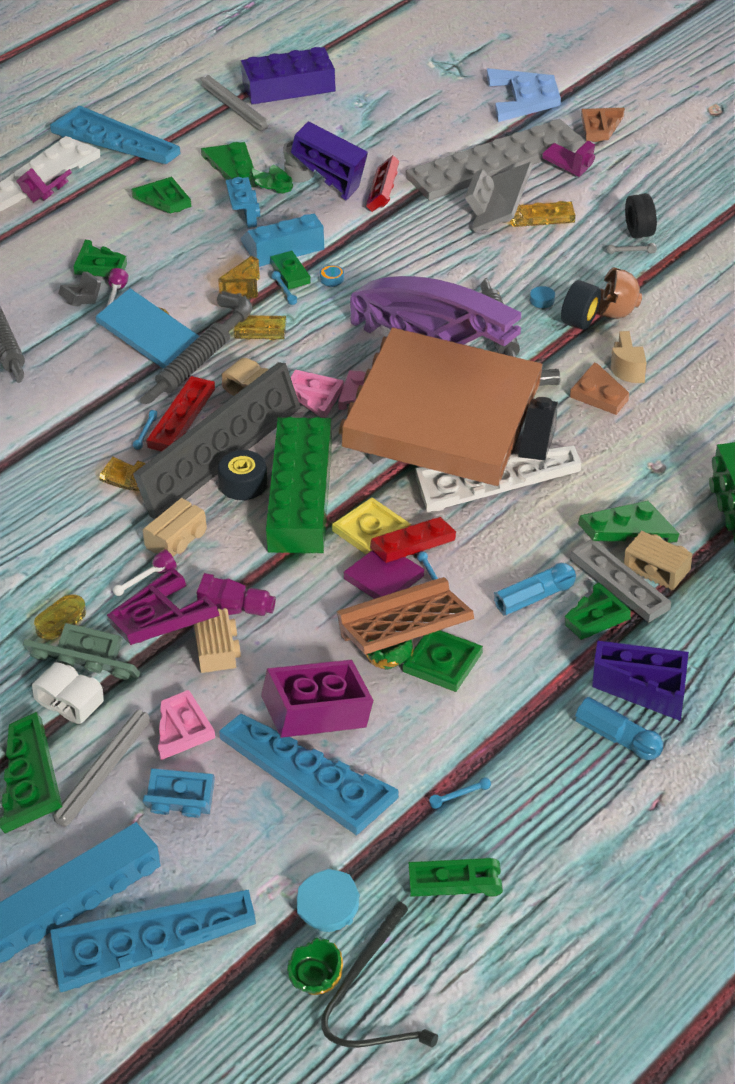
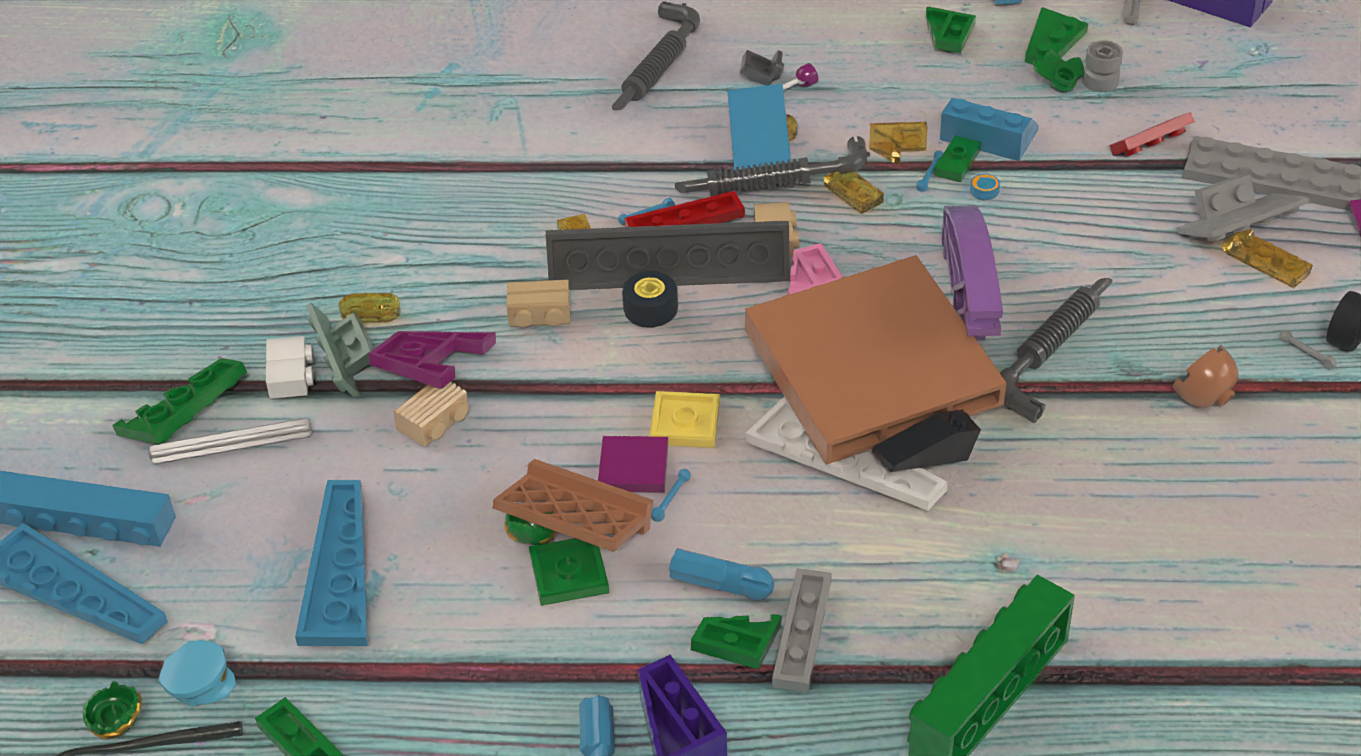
camera: 50 degrees right, 0 degrees up
(98, 261) = (814, 49): green wing -> none
(161, 563) = (491, 322): hinge -> none
(179, 792) = (237, 503): dark azure bracket -> none
(182, 725) = (319, 455): bright pink wing -> none
(234, 597) = (493, 389): magenta piece -> none
(244, 198) = (1002, 71): dark azure bracket -> none
(299, 486) = (671, 340): green brick -> none
(316, 698) = (411, 512): magenta brick -> none
(331, 157) = (1117, 75): dark purple wedge -> none
(412, 539) = (692, 453): red plate -> none
(436, 801) = (389, 675): dark azure hinge -> none
(542, 297) = (1143, 333): dark azure tile -> none
(580, 304) = (1152, 361): black wheel -> none
(600, 390) = (1061, 454): nougat wing -> none
(627, 521) = (889, 587): green wing -> none
(628, 361) = (1127, 444): tan brick -> none
(658, 560) = (860, 639): tan brick -> none

